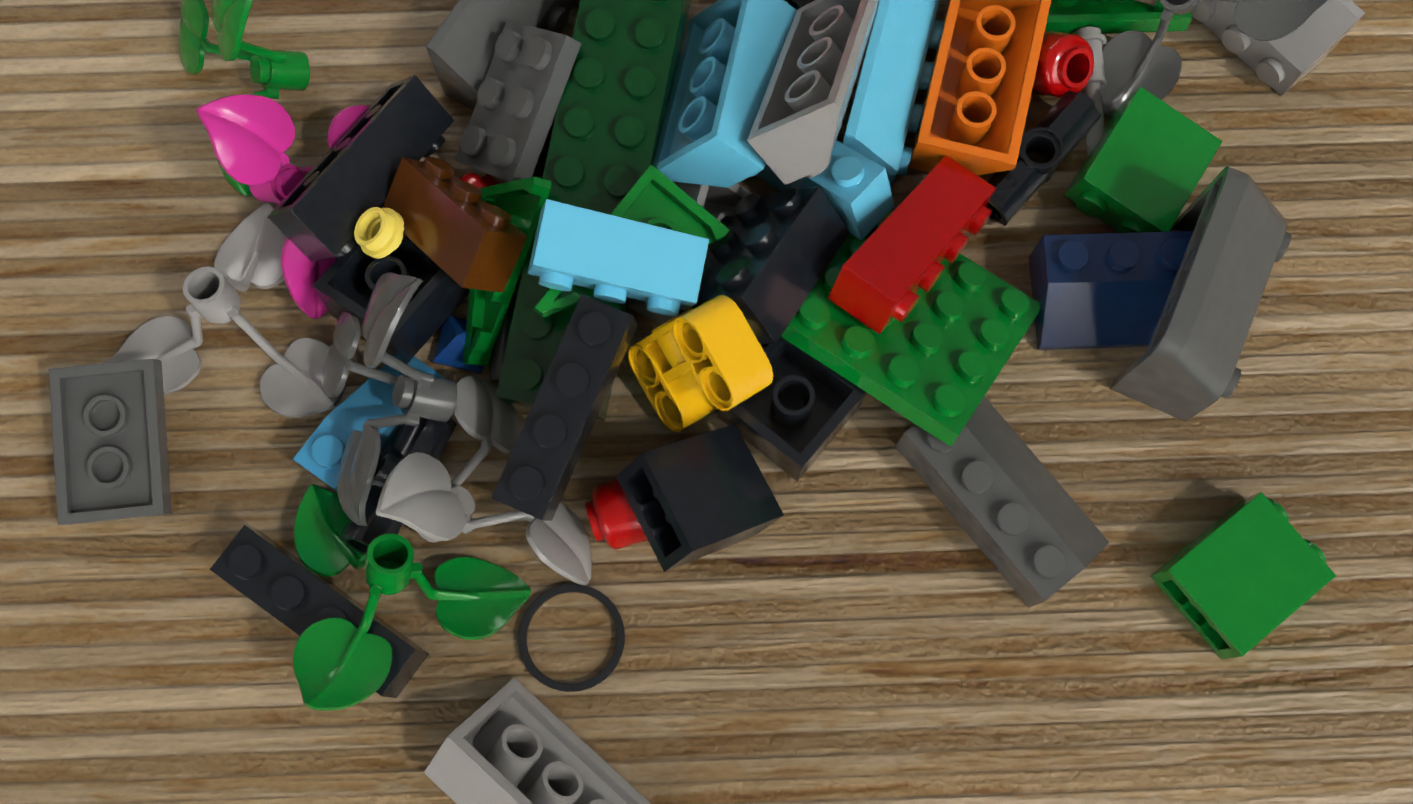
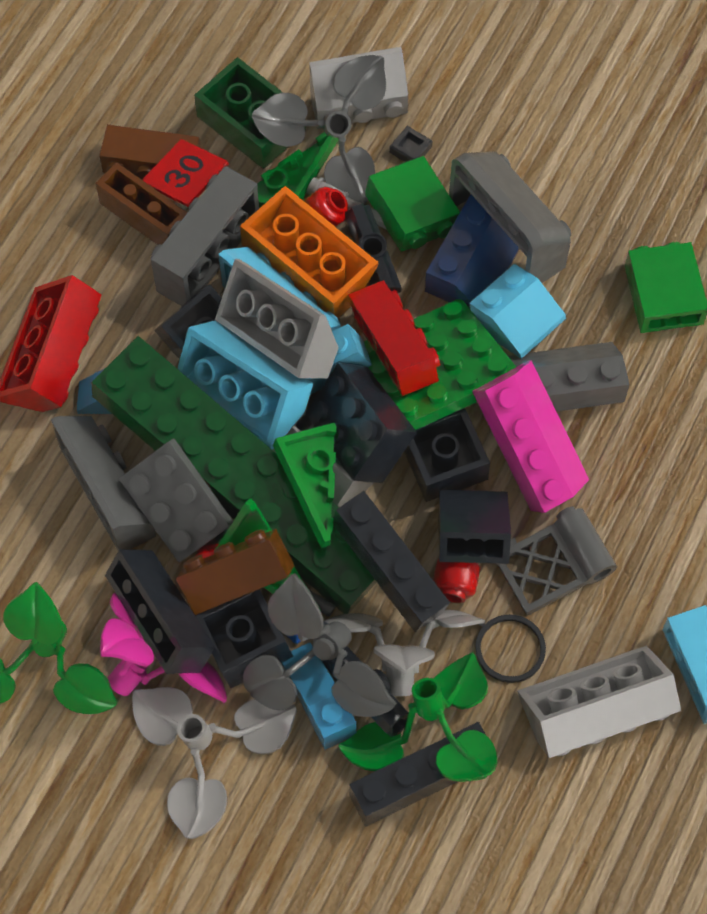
camera: 60 degrees left, 10 degrees down
(109, 441) = (242, 852): dark grey plate -> none
(379, 231) = (206, 616): light yellow plate -> none
(617, 258) = (325, 481): medium azure brick -> none
(700, 363) = (392, 466): yellow beam -> none
(762, 657) = (580, 548): none -> dark grey piece
(880, 507) = (531, 437): none -> dark pink slope
(1067, 388) = (517, 311): none -> medium azure slope
(1234, 123) = (410, 145): none -> black tile

